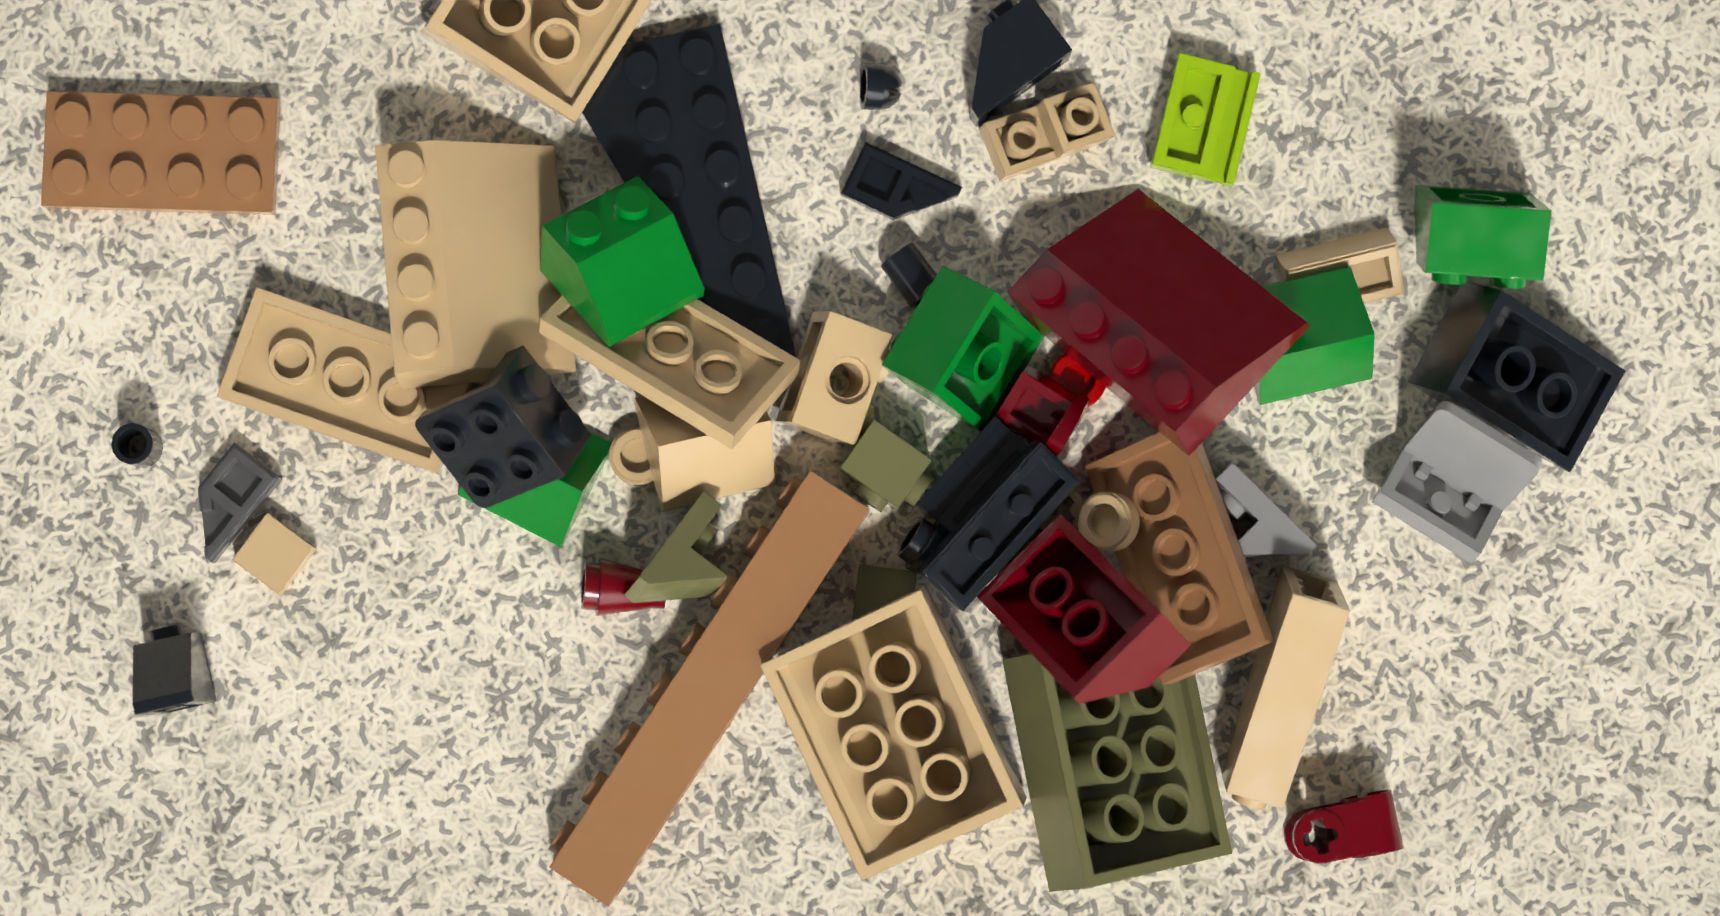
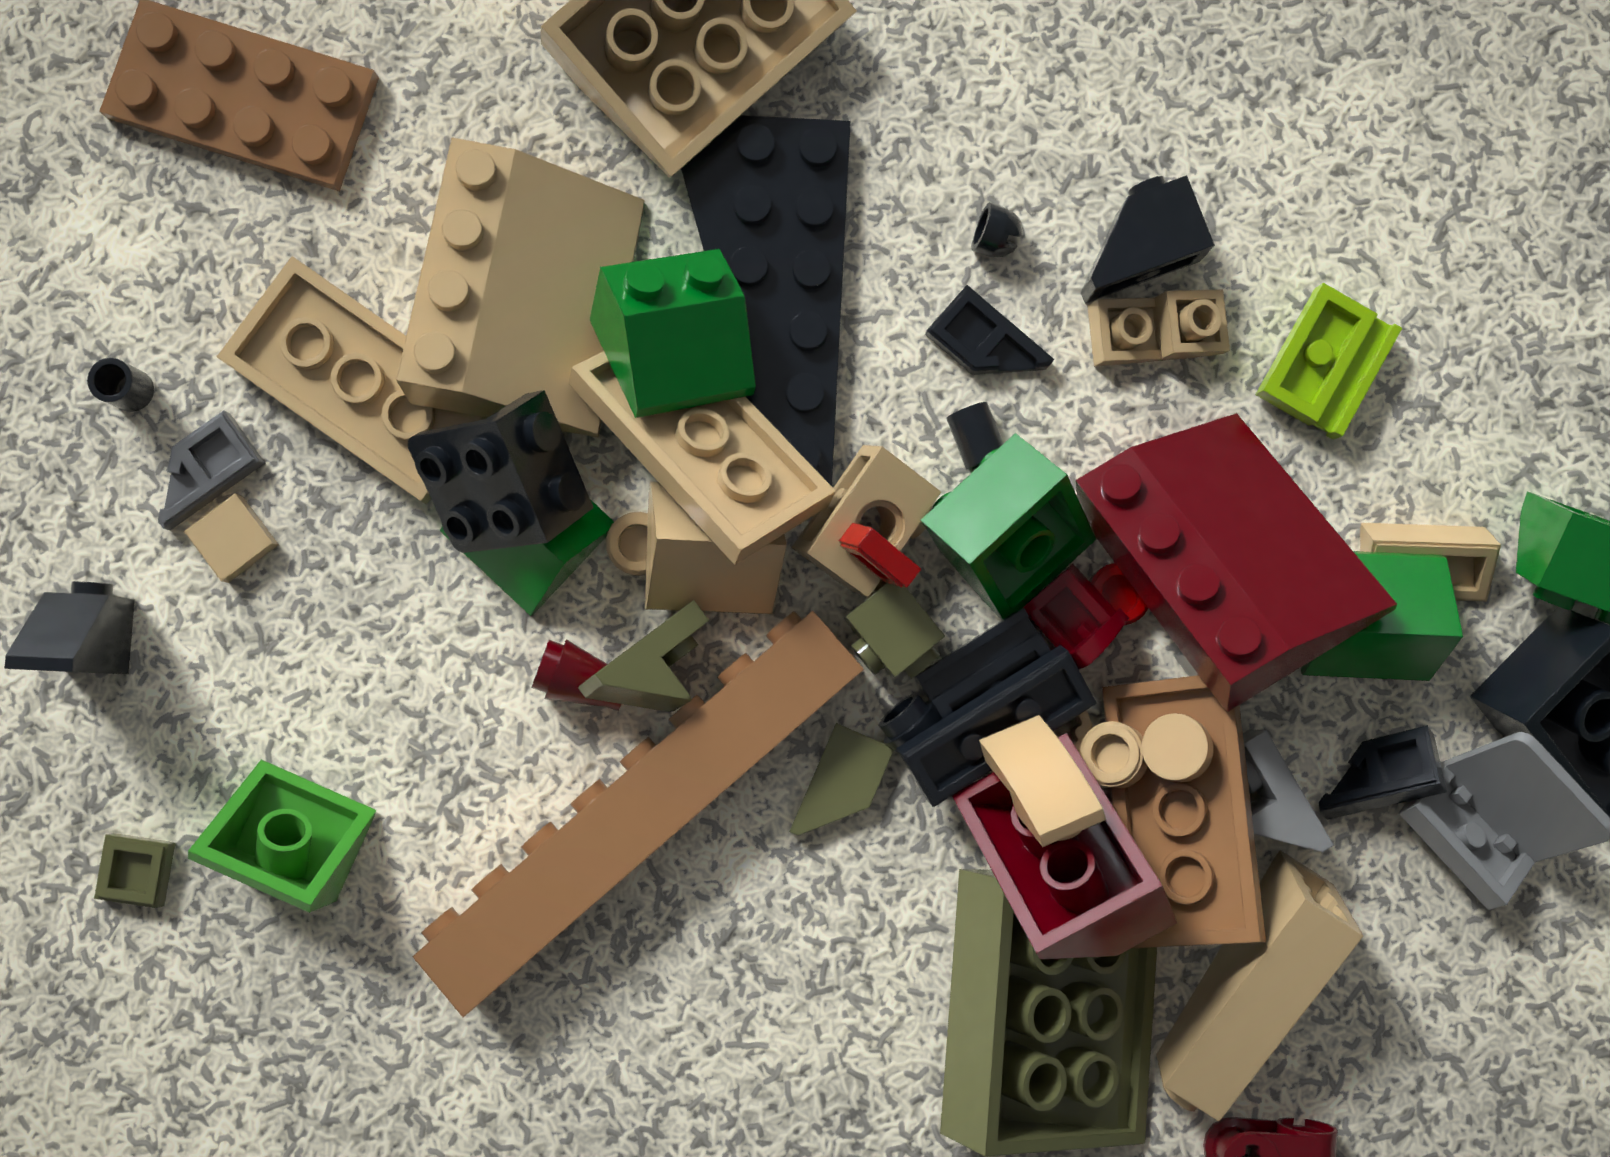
camera: 15 degrees right, 0 degrees up
(276, 870) = (134, 870): none -> olive tile
(406, 797) = (285, 837): none -> bright green slope
(853, 406) = (879, 555): none -> red tile
(894, 733) = (822, 919): tan slope -> none
(1045, 558) = (1042, 781): none -> tan slope
(1157, 499) = (1177, 747): none -> tan tile
(1353, 470) = (1387, 773): none -> black tile

